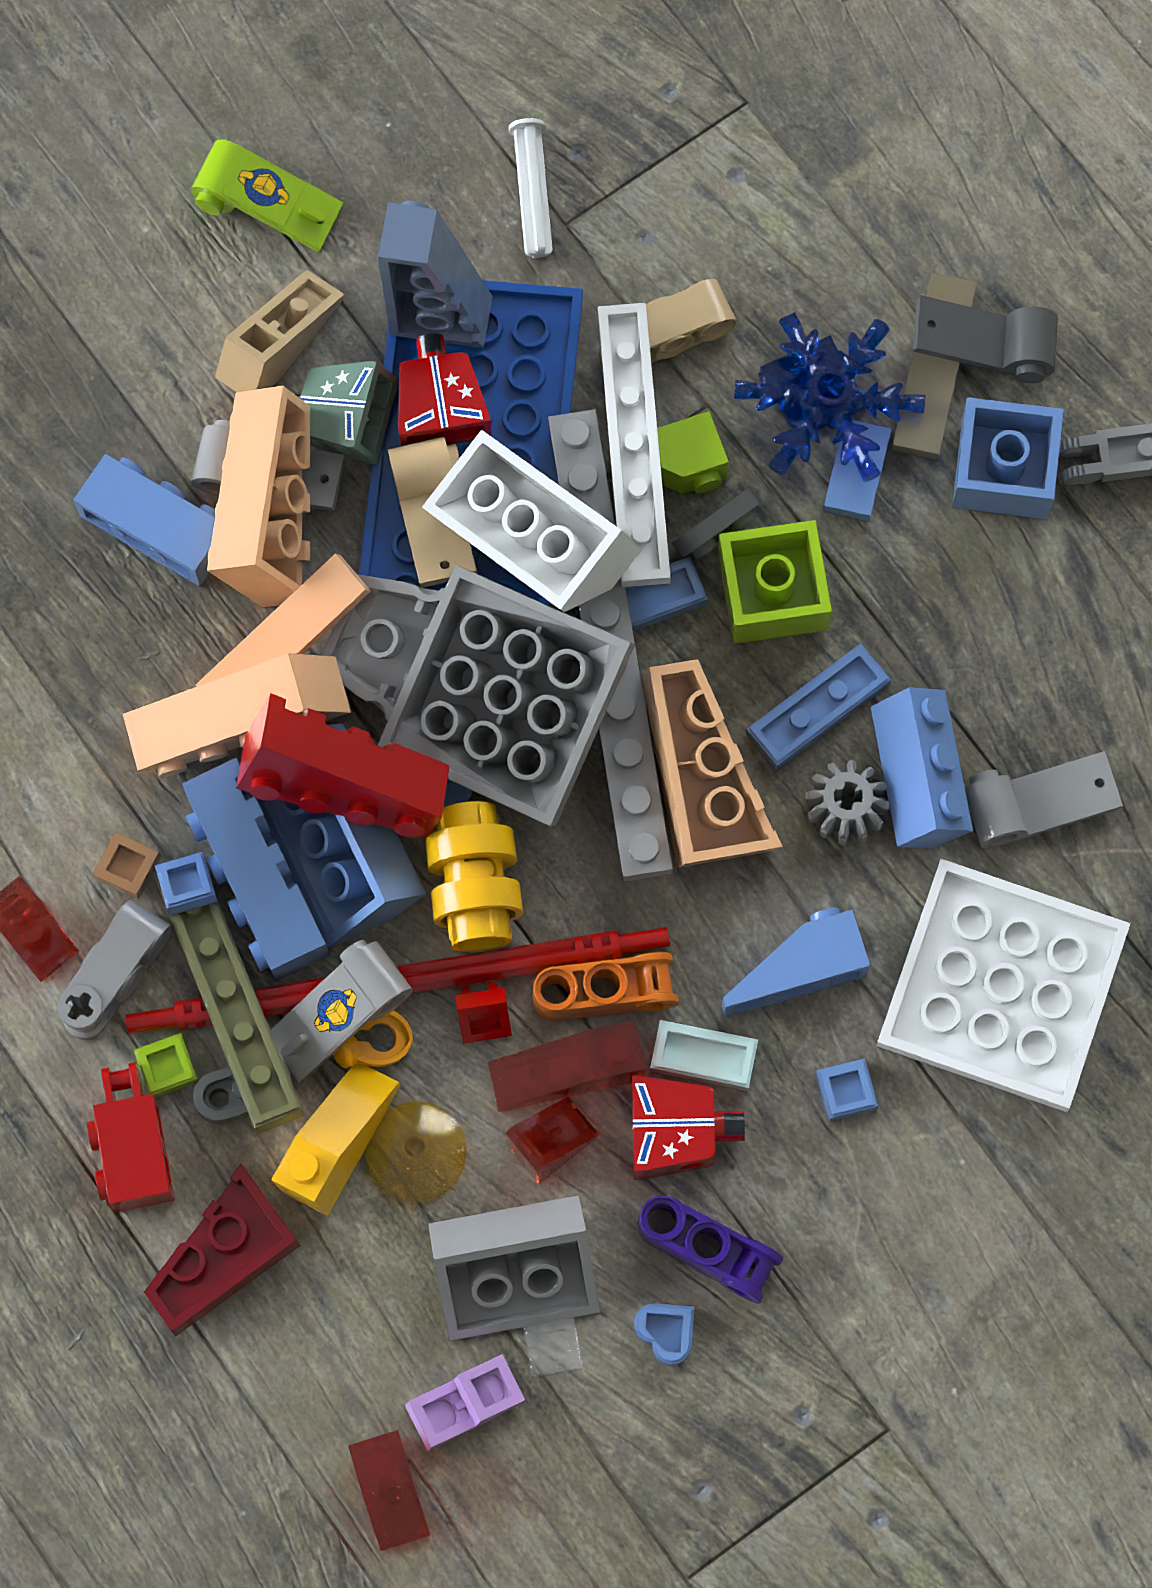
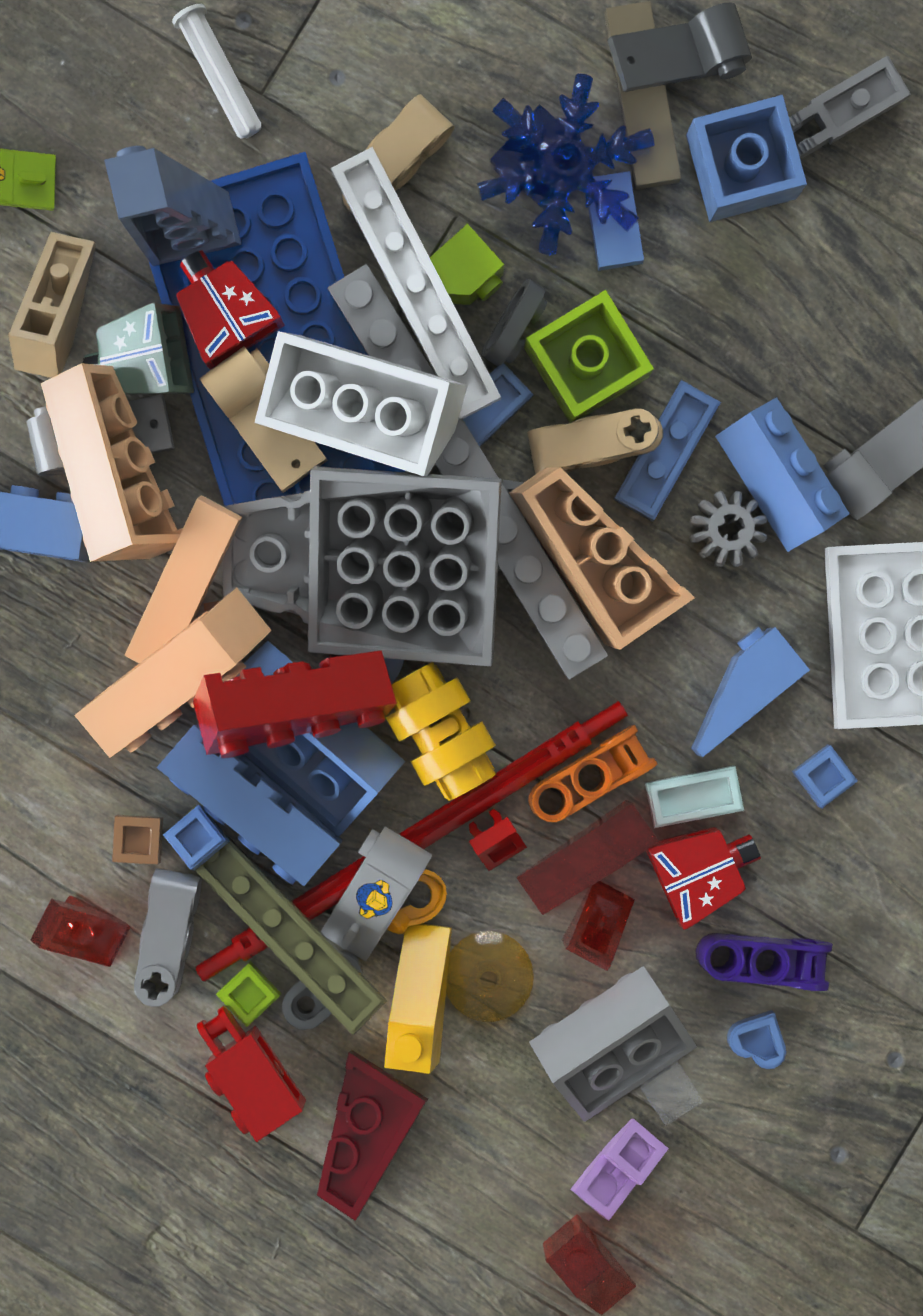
camera: 20 degrees left, 15 degrees up
(752, 663) = (593, 440): none -> tan piece

